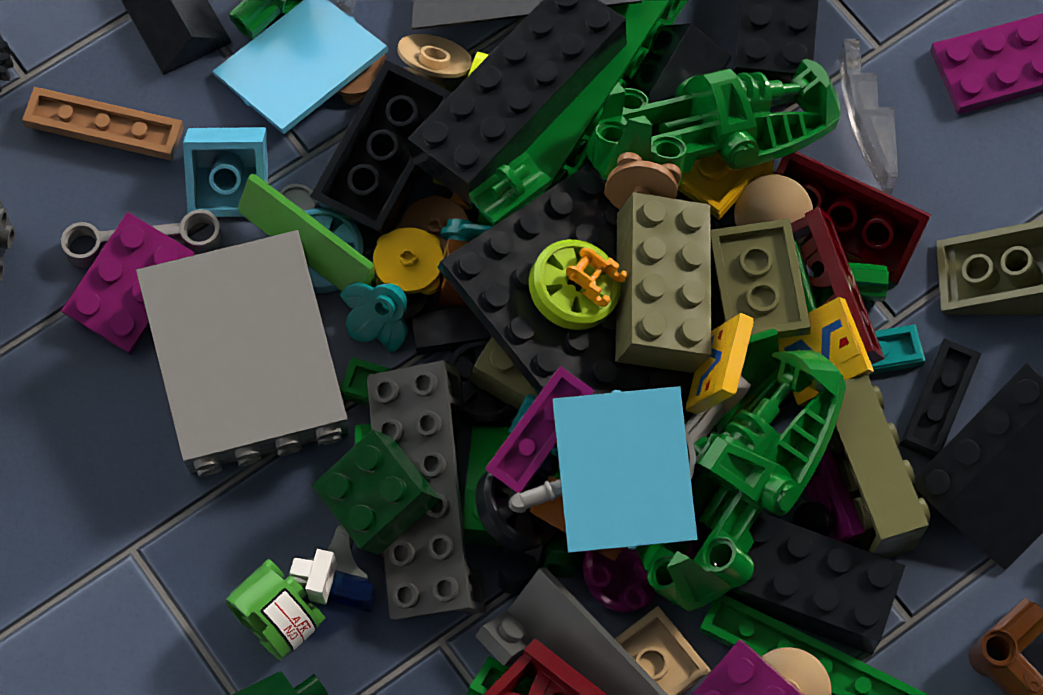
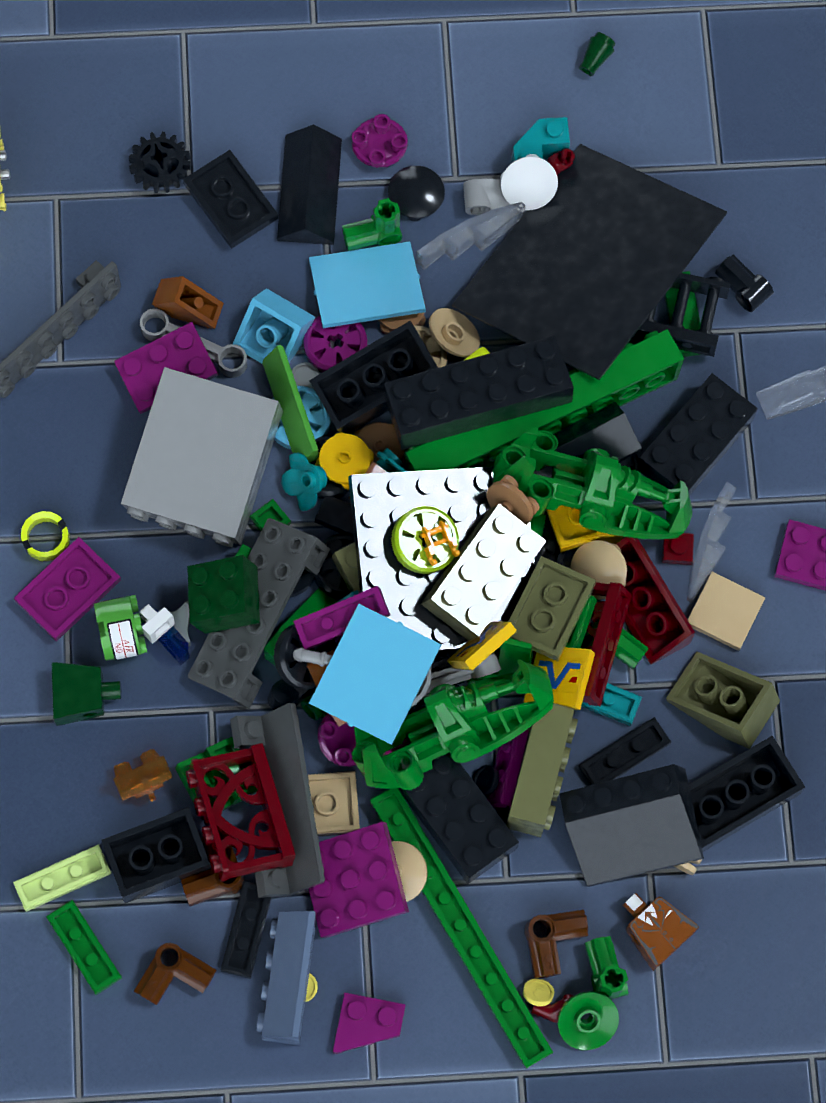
camera: 30 degrees right, 5 degrees up
(79, 56) = (230, 199): none -> black plate
(101, 535) = (35, 519): none -> neon yellow piece
(103, 123) = (217, 252): medium nougat plate -> none
(104, 196) = (187, 302): none -> dark orange slope
(177, 606) = (67, 589): none -> magenta plate
(285, 150) = (318, 345): none -> magenta wheel
(509, 188) = (427, 453): green hips -> none
(839, 145) = (678, 550): none -> dark red plate
(938, 178) = (725, 611): none -> tan tile

